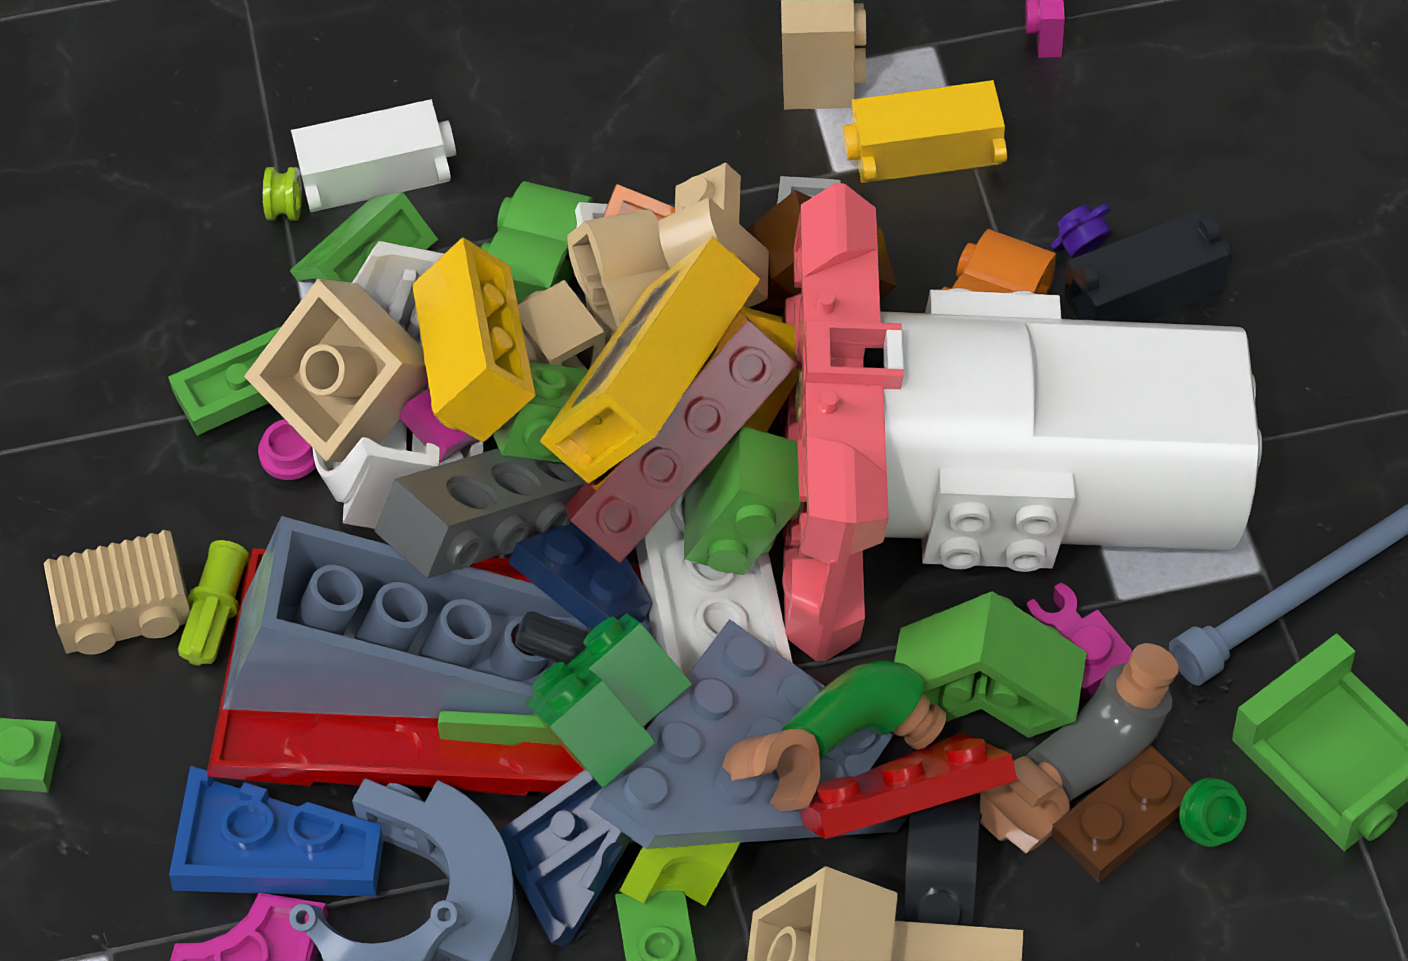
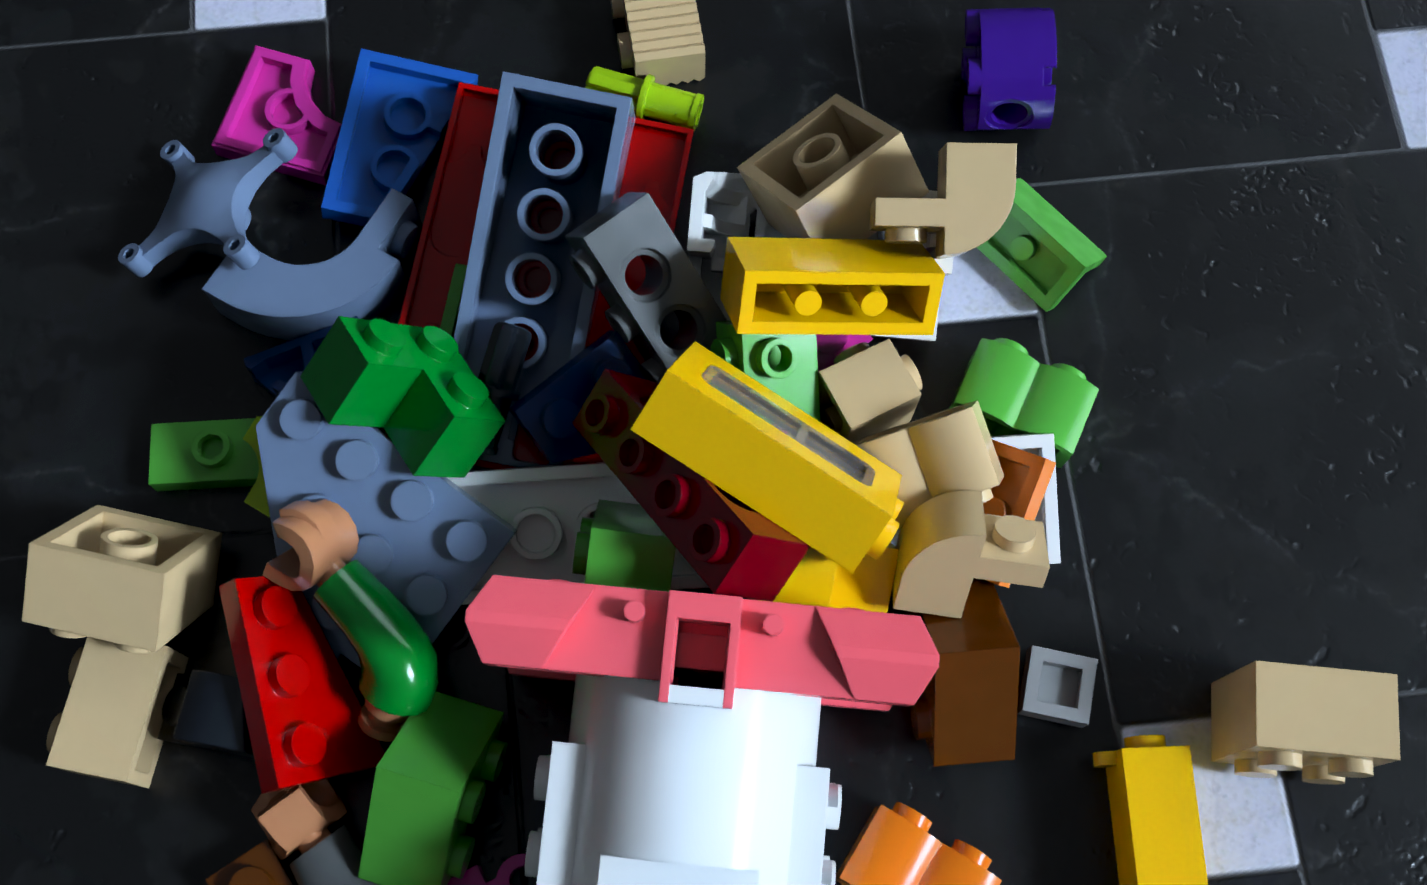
camera: 90 degrees right, 15 degrees up
(184, 264) = (1009, 69): none -> dark purple brick
(217, 386) = (883, 95): bright green plate -> none
(282, 193) = (1107, 168): lime bush -> none
(373, 155) = (1149, 251): white brick -> none
(393, 219) = (971, 201): none -> tan brick

